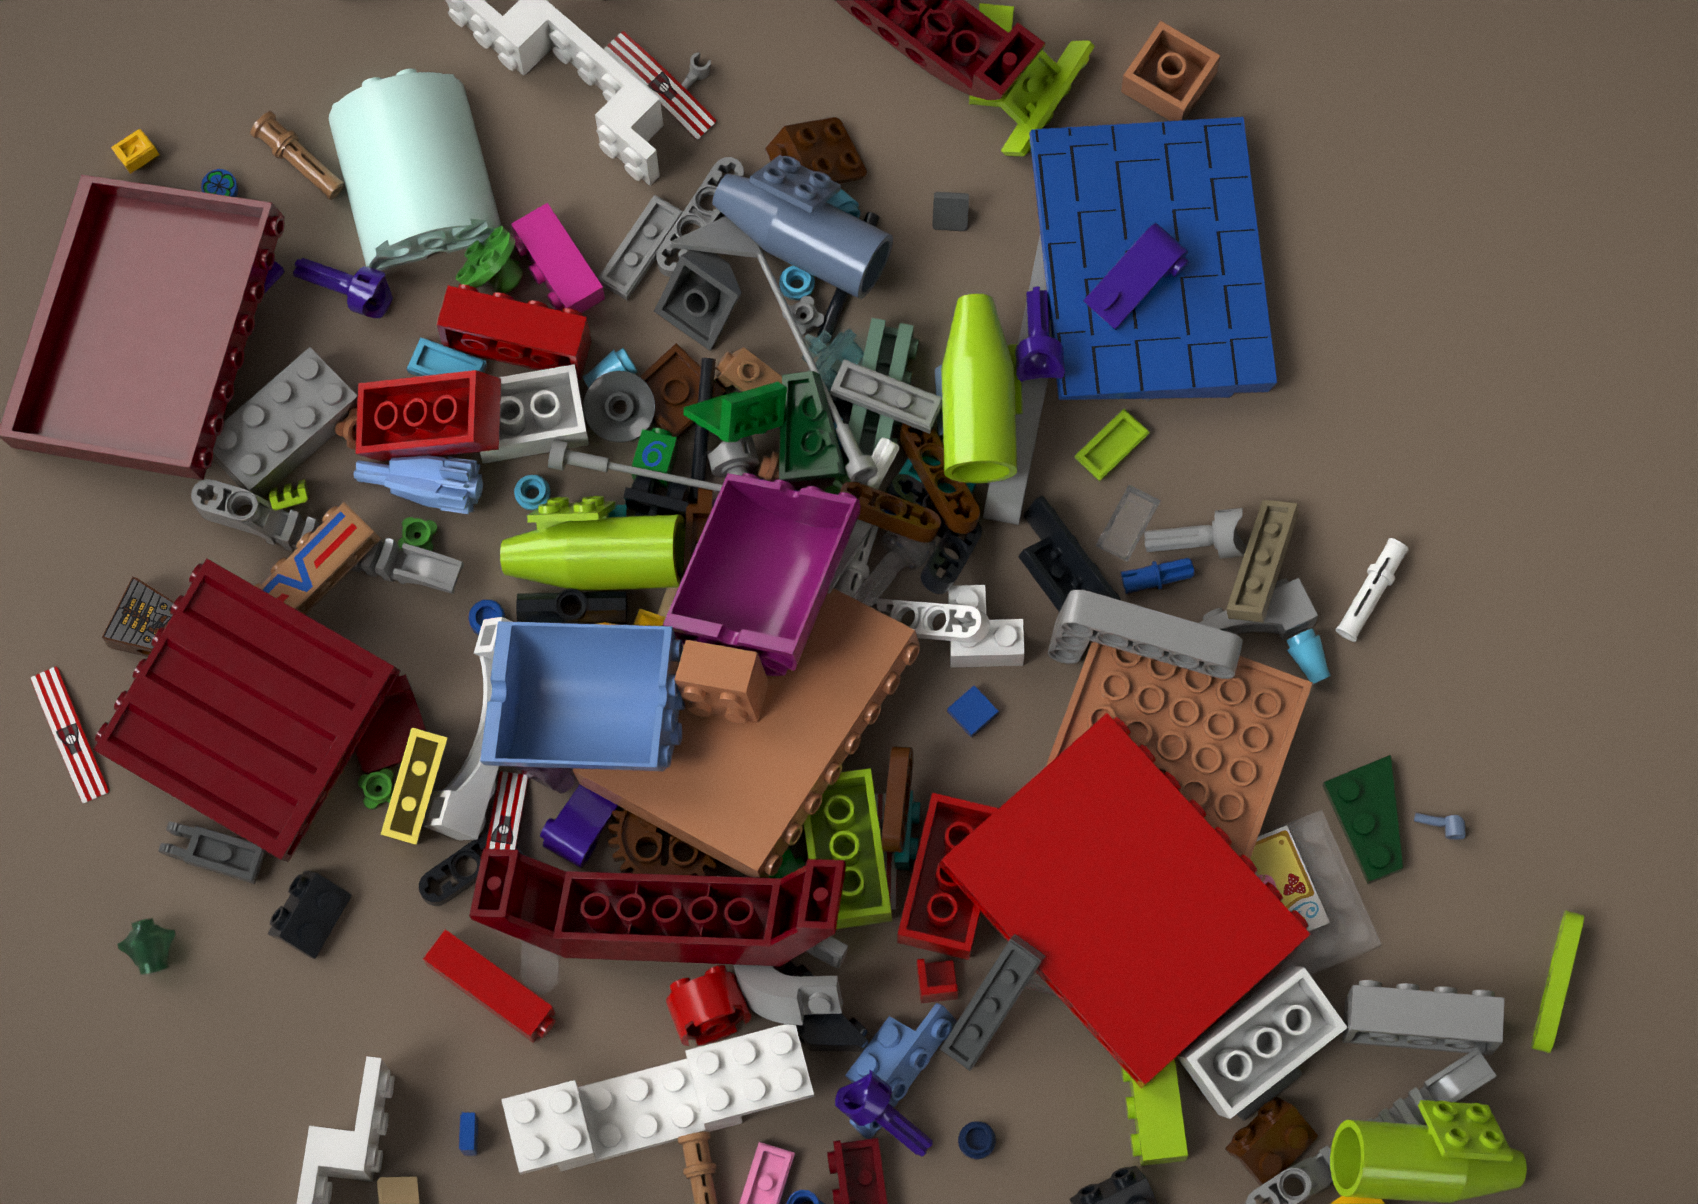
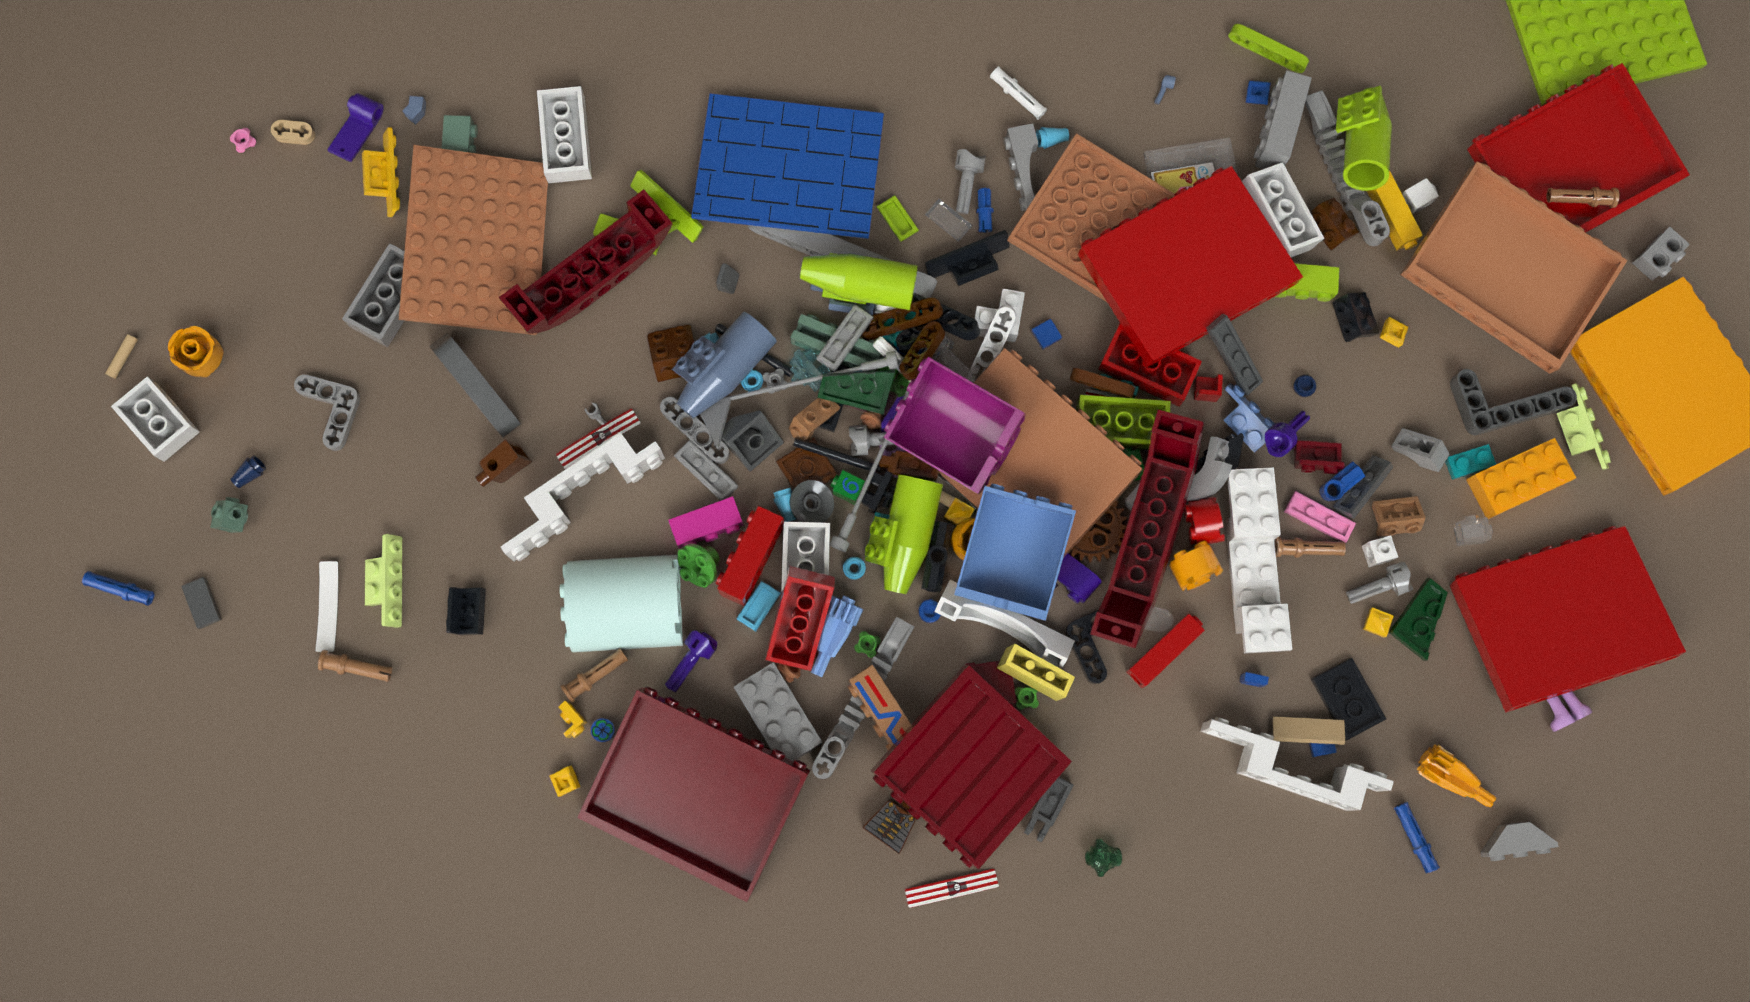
camera: 85 degrees left, 5 degrees up
(230, 140) = (570, 715): none -> yellow bracket
(289, 496) = (822, 718): lime tile -> none
(309, 913) = (1098, 754): black bracket -> none
(506, 811) = (1073, 626): sticker -> none
(631, 1005) = (1195, 567): none -> light orange brick
(721, 681) = (1020, 465): nougat brick -> none
(741, 413) = (839, 429): green bracket -> none
(1039, 353) = (842, 239): dark purple piece -> none
(1136, 274) = (803, 173): dark purple door -> none
(1141, 632) = (1018, 245): light grey beam -> none
(1170, 73) = (670, 129): nougat brick -> none
(1262, 561) = (993, 146): dark tan plate -> none
(1369, 818) = (1152, 127): dark green wing -> none
(1473, 975) = (1258, 92): none -> blue tile

